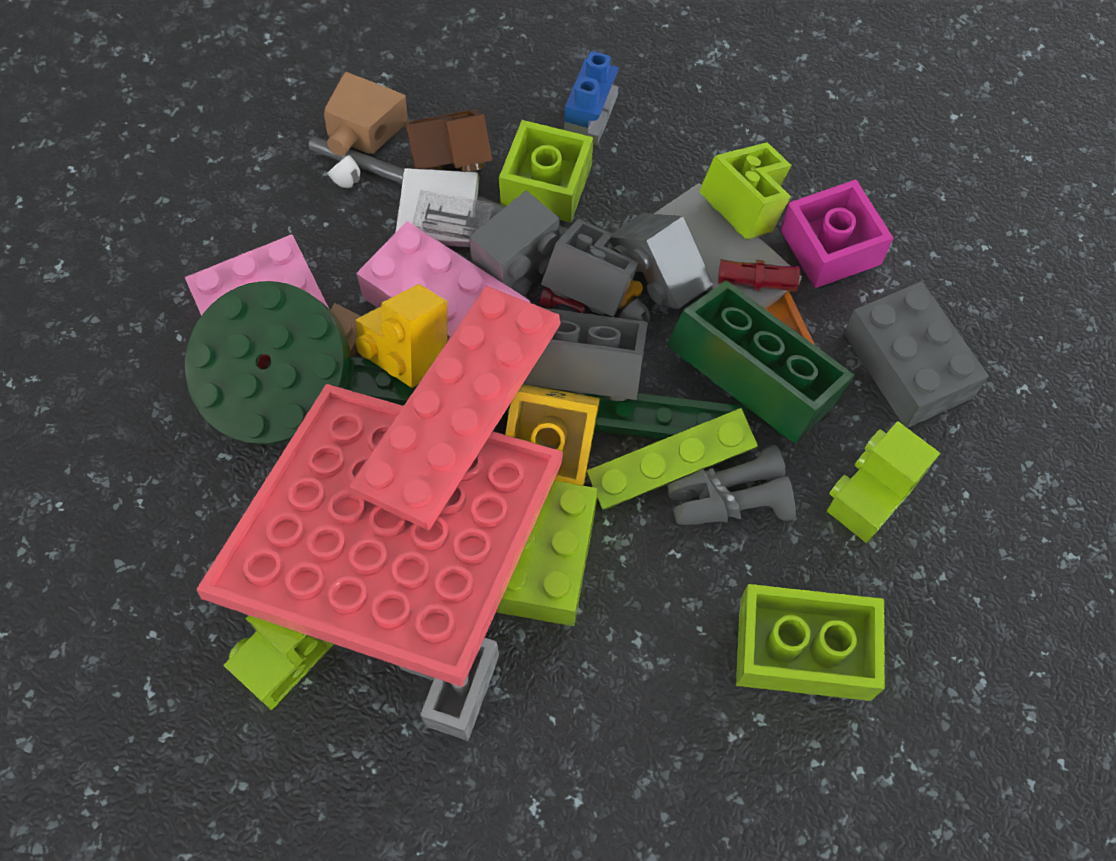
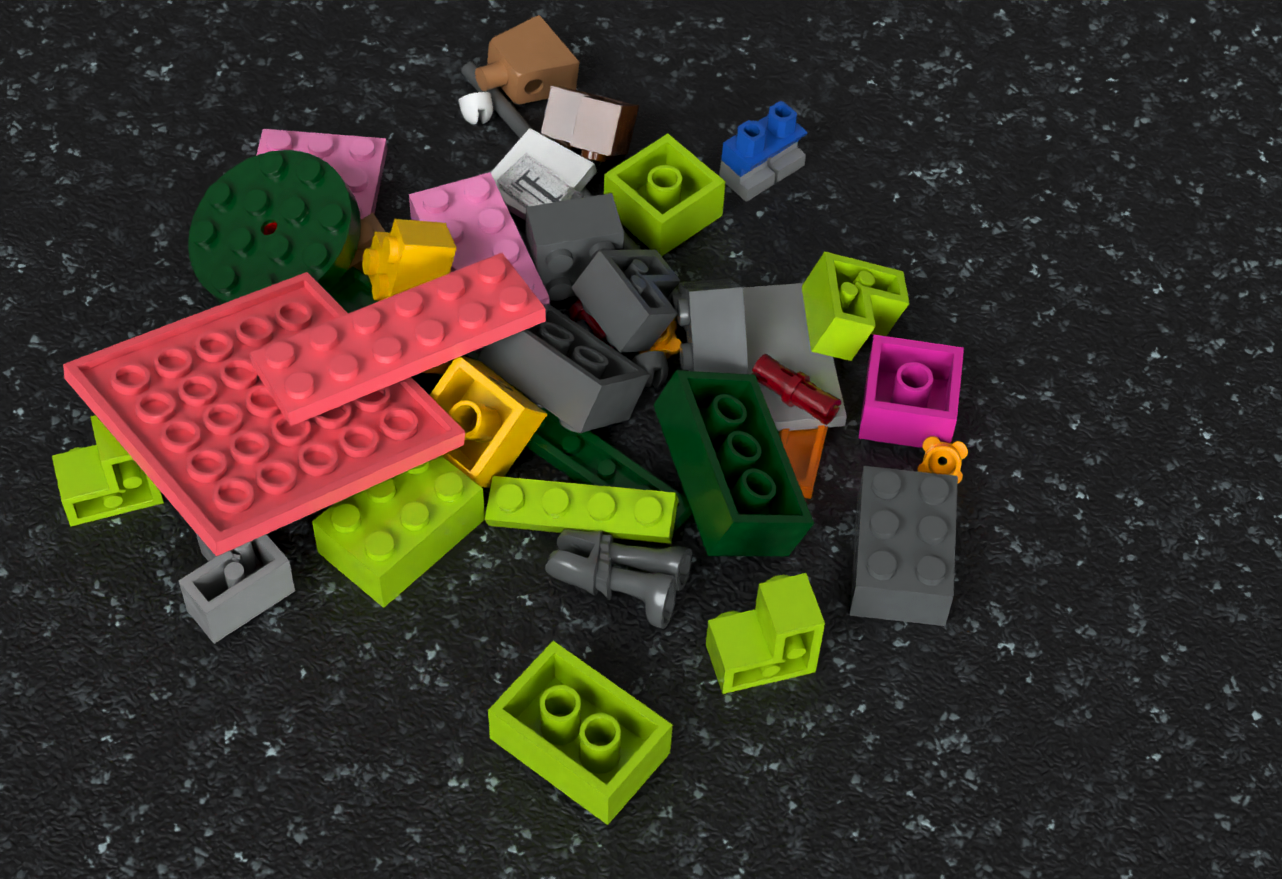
camera: 30 degrees right, 10 degrees down
(896, 274) = (935, 449): none -> light orange plate

